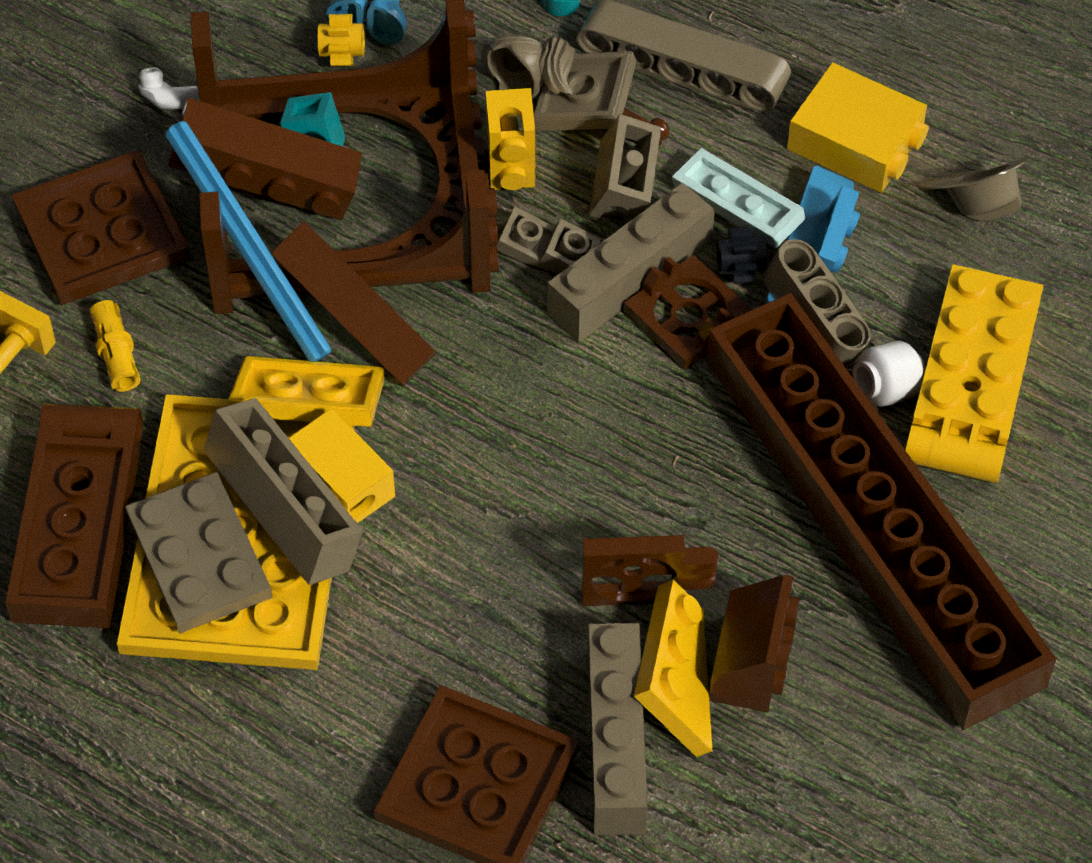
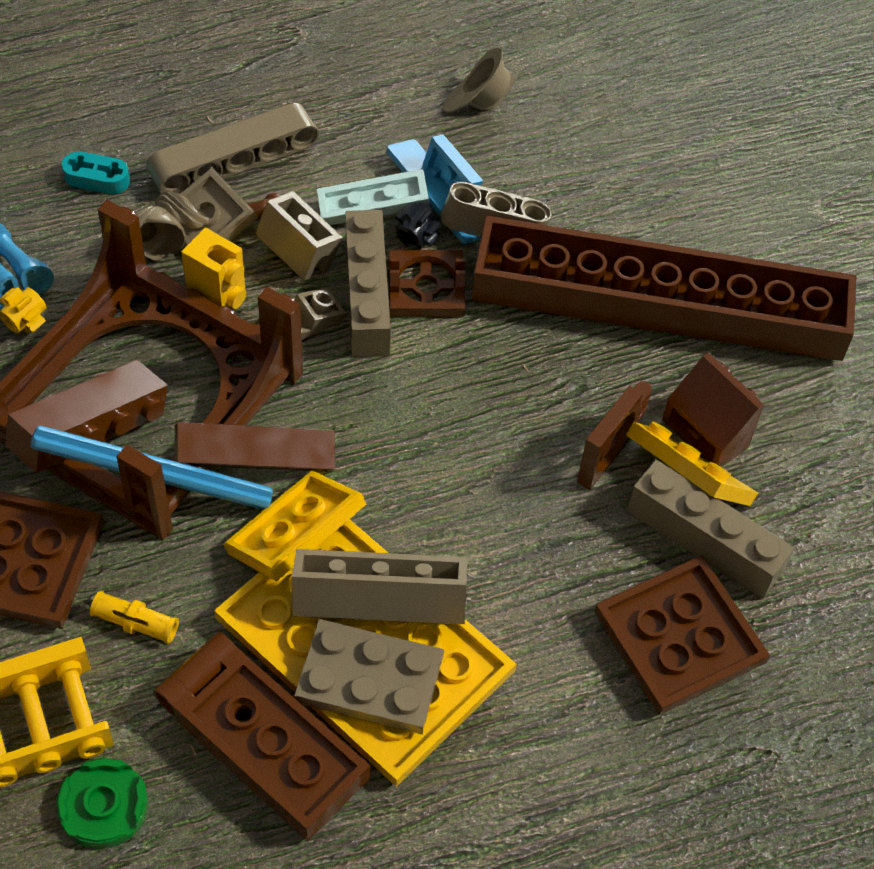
camera: 55 degrees left, 0 degrees up
(315, 115) = (78, 365): teal brick -> none
(346, 464) = (388, 531): yellow brick -> none
(858, 127) = (379, 108): yellow brick -> none
(889, 373) = (574, 212): white head -> none
(974, 373) = (606, 179): yellow hinge -> none

